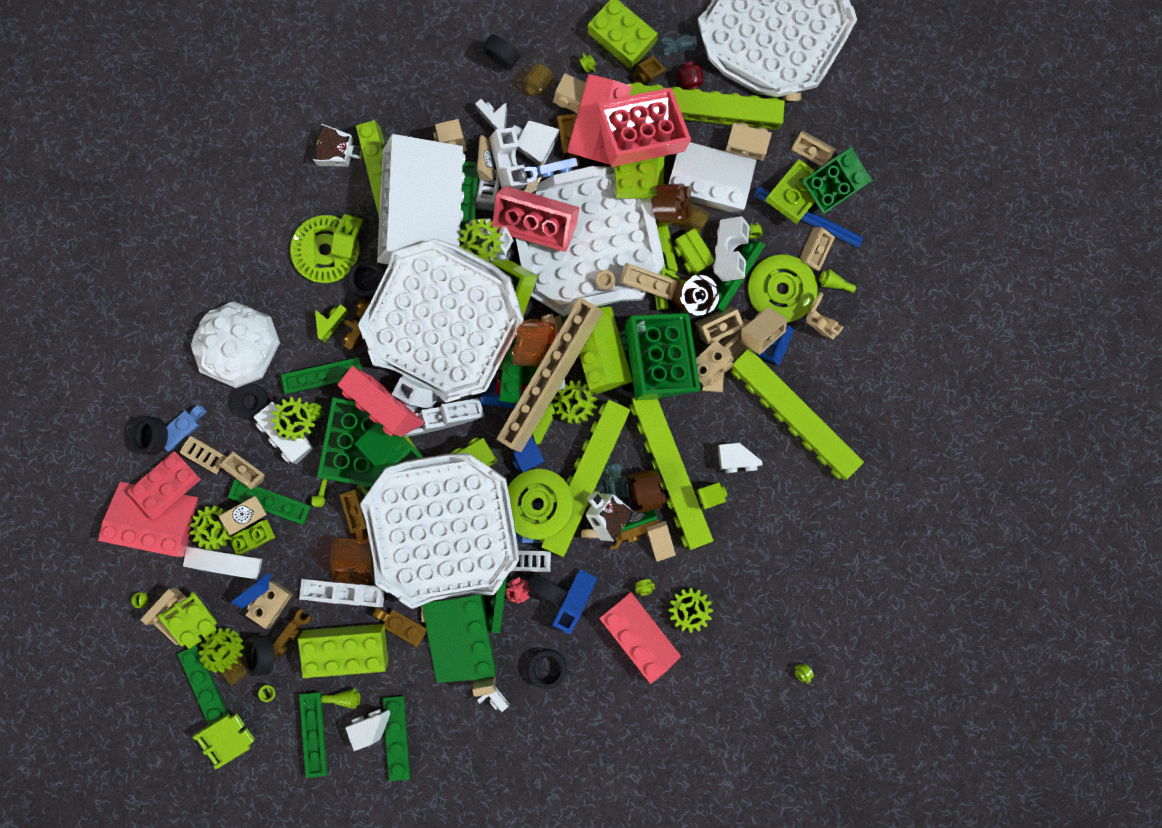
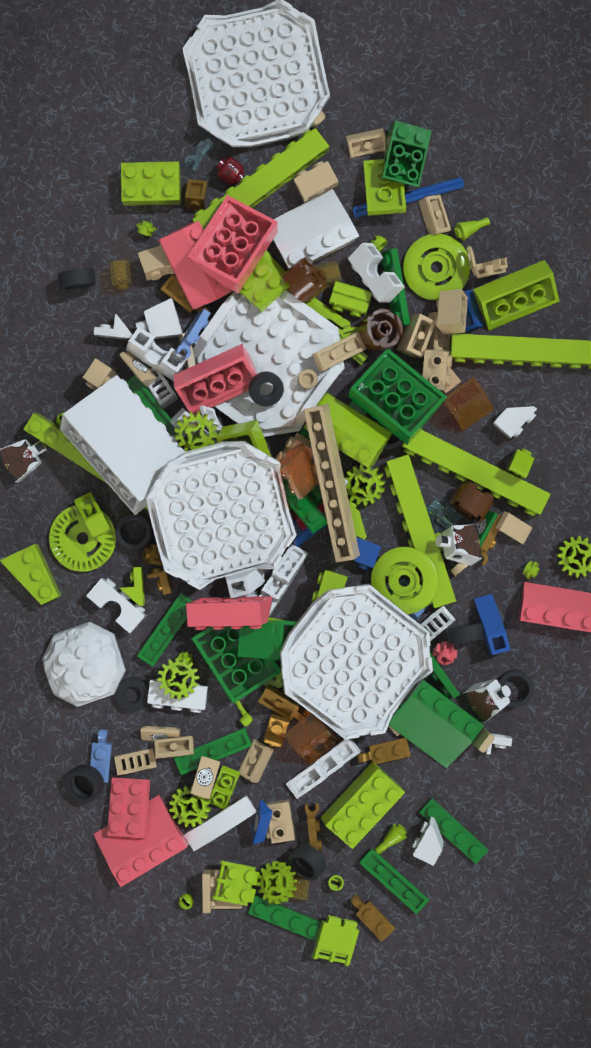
camera: 45 degrees left, 5 degrees up
(238, 446) = (153, 733): none -> tan slope
(262, 241) = (33, 573): none -> lime wedge
(269, 748) = (373, 918): none -> pearl gold plate
(295, 540) = (255, 761): none -> tan slope
(306, 338) = (130, 614): none -> white arch
(332, 529) = (275, 731): none -> pearl gold bracket
(518, 657) = (487, 698): none -> torso
(557, 266) = (274, 396): none -> black tyre
(712, 413) = (468, 404): none -> clear orange slope
(825, 364) = (517, 295): none -> lime slope

